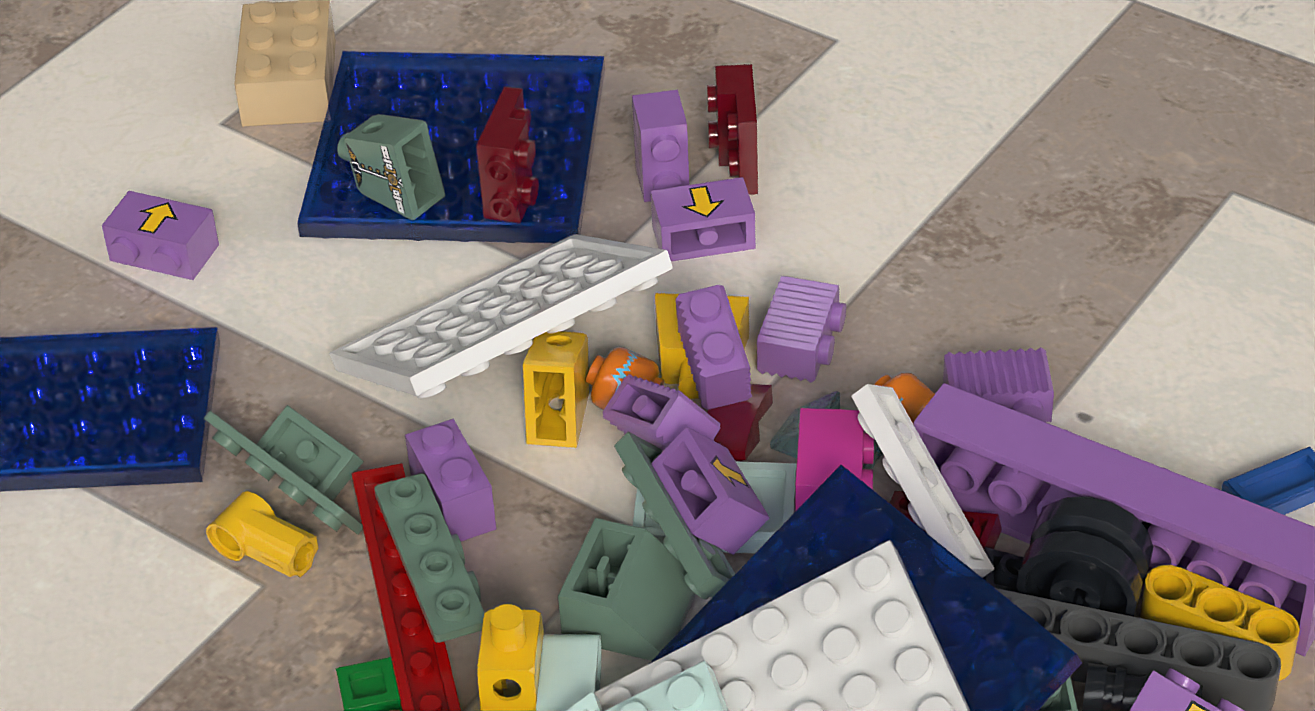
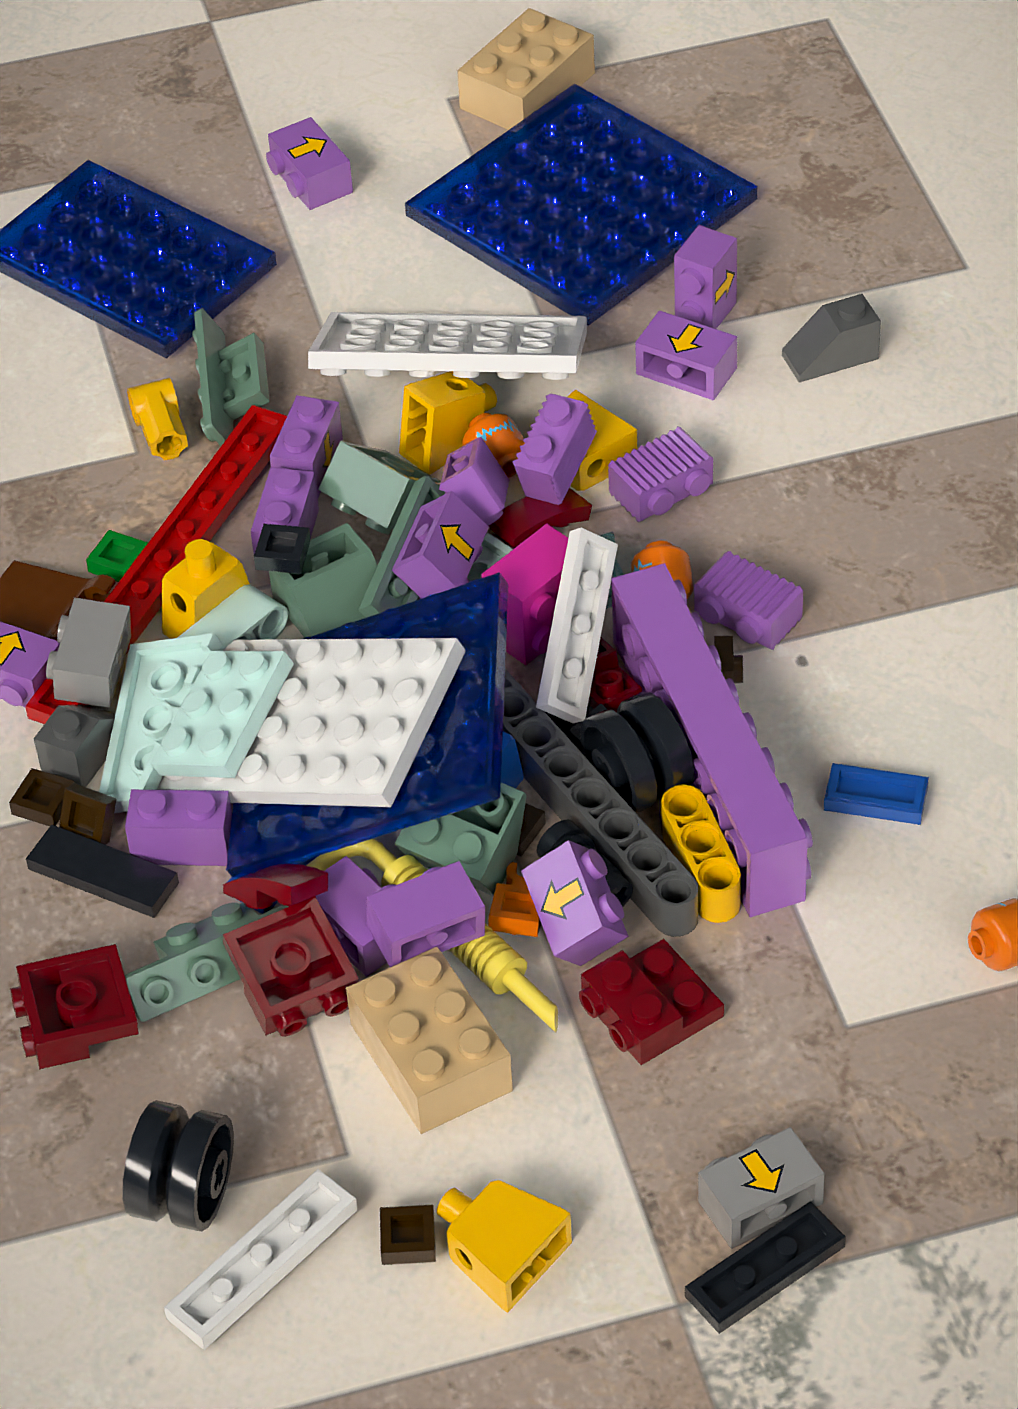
camera: 40 degrees right, 5 degrees up
(394, 163) = (494, 179): sand green torso -> none
(431, 558) = (232, 491): sand green bracket -> none
(505, 555) = (287, 500): none -> medium lavender brick
(507, 160) = (569, 227): dark red plate -> none
(562, 479) = (370, 483): none -> slope
(574, 572) = (282, 548): none -> black plate
(736, 122) = (781, 295): dark red plate -> none
(812, 142) = (834, 339): none -> dark grey slope

